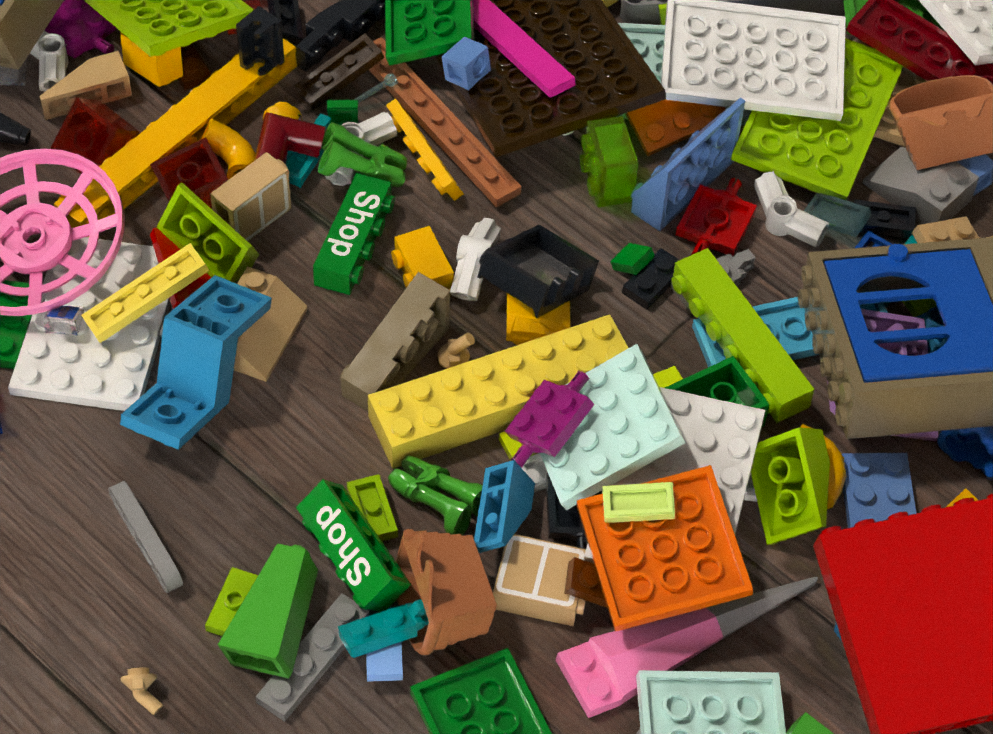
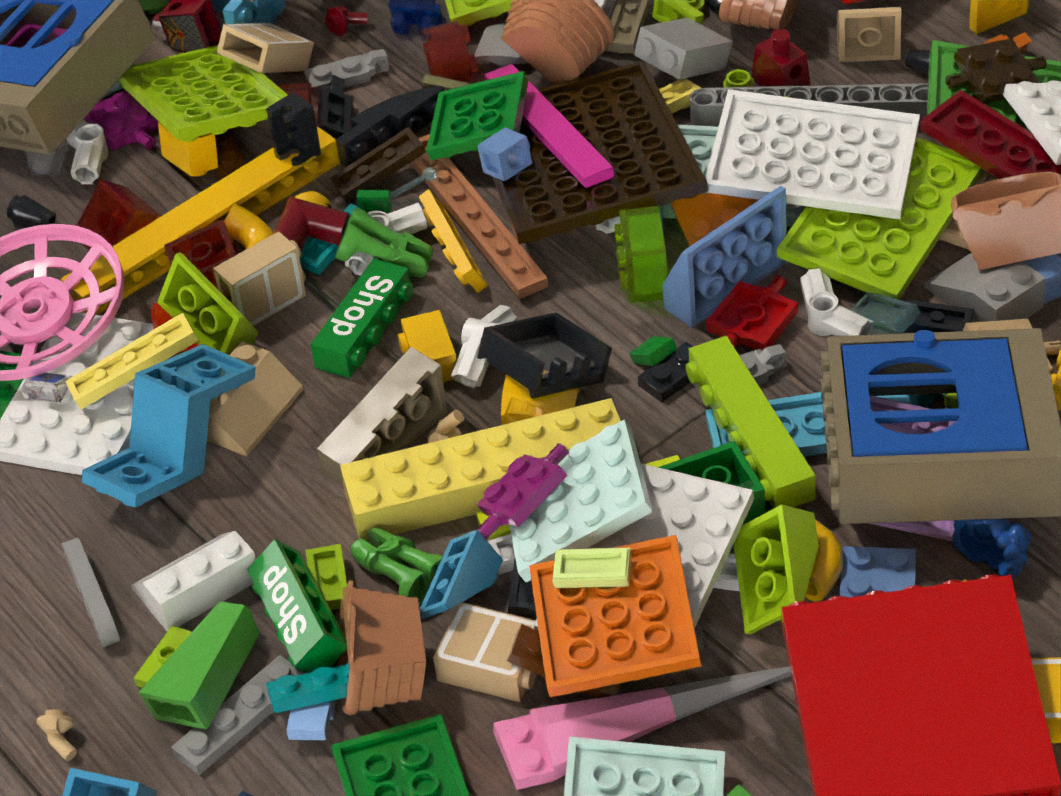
camera: 15 degrees right, 10 degrees down
(97, 79) = (131, 166): tan slope -> none
(245, 516) = (197, 580): none -> white slope

